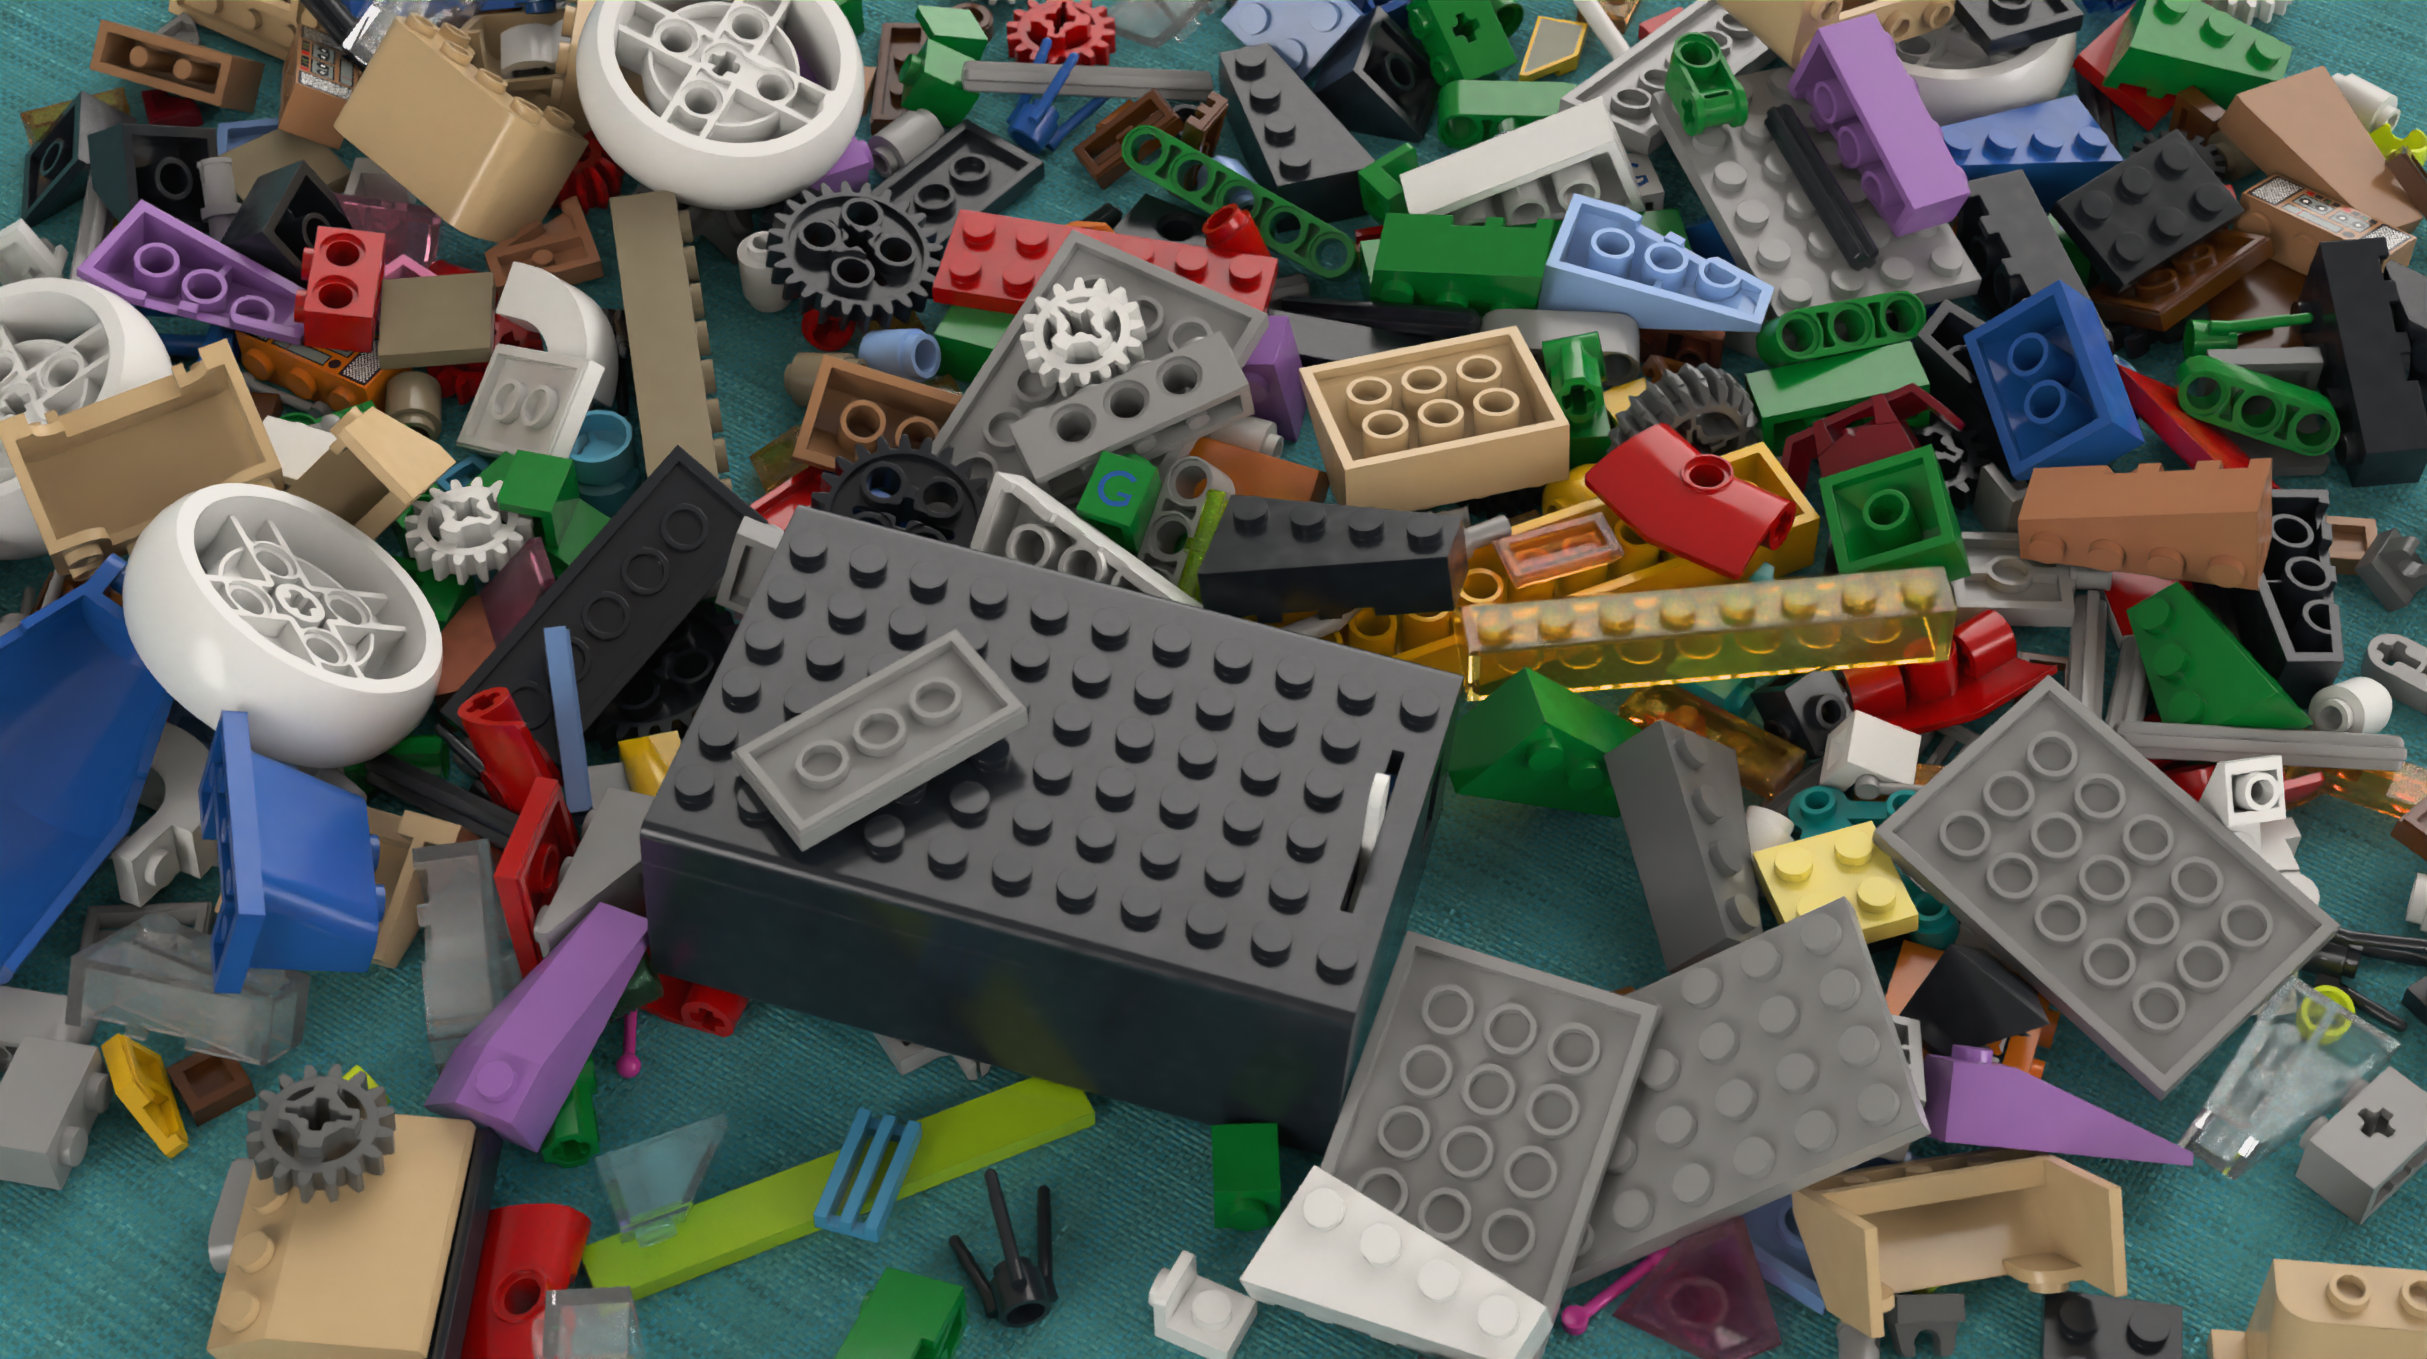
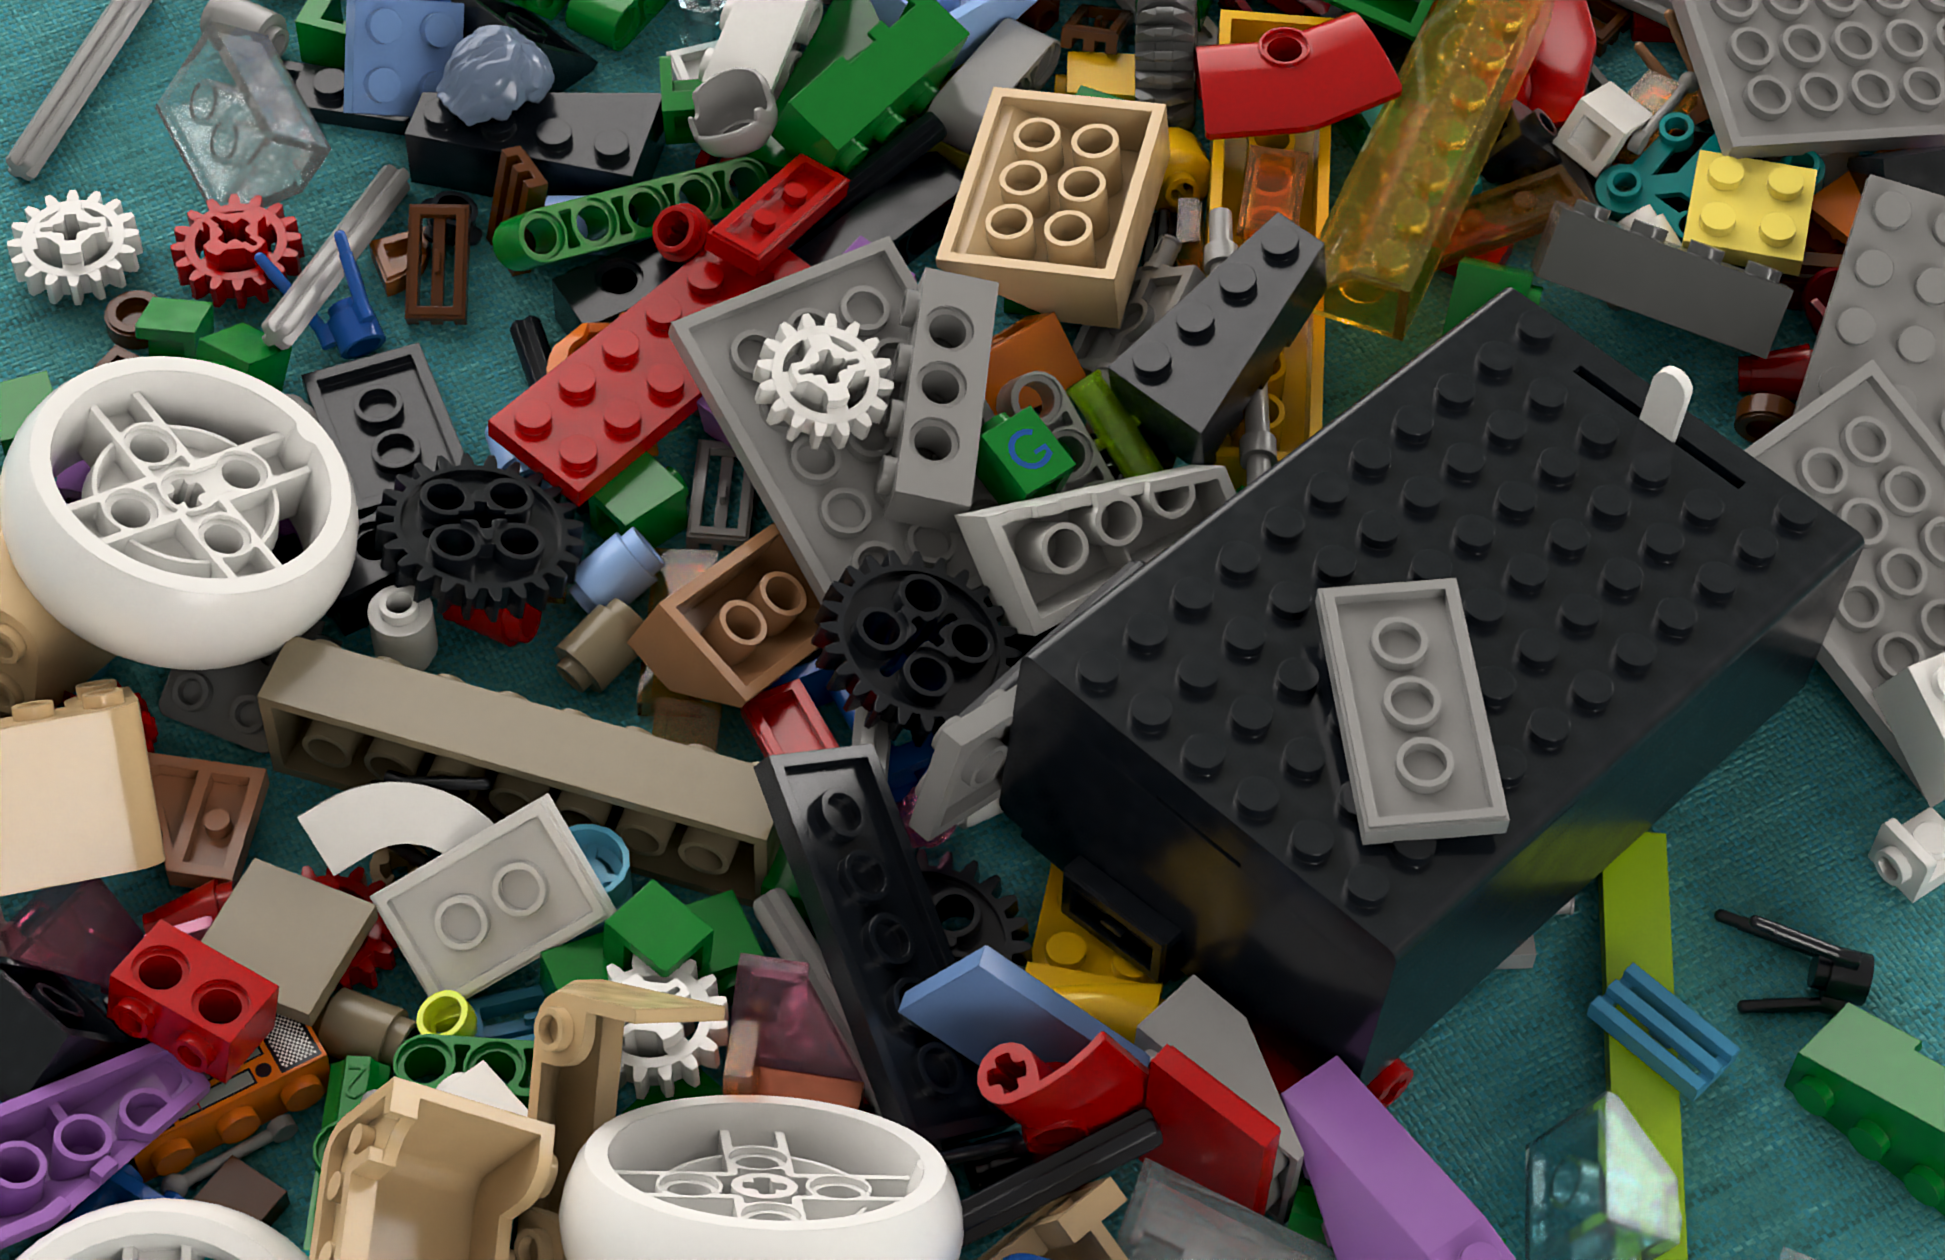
camera: 65 degrees left, 5 degrees up
(448, 436) = (447, 1013): none -> neon yellow hinge
(455, 590) = (742, 1059): none -> clear orange tile
(1246, 1176) = (1802, 753): green brick -> none
(1288, 270) = (777, 214): none -> red tile
(1296, 57) = (494, 75): none -> sand blue hair
(1363, 208) = (733, 113): none -> light grey hair
(1576, 374) = (1061, 69): green piece -> none

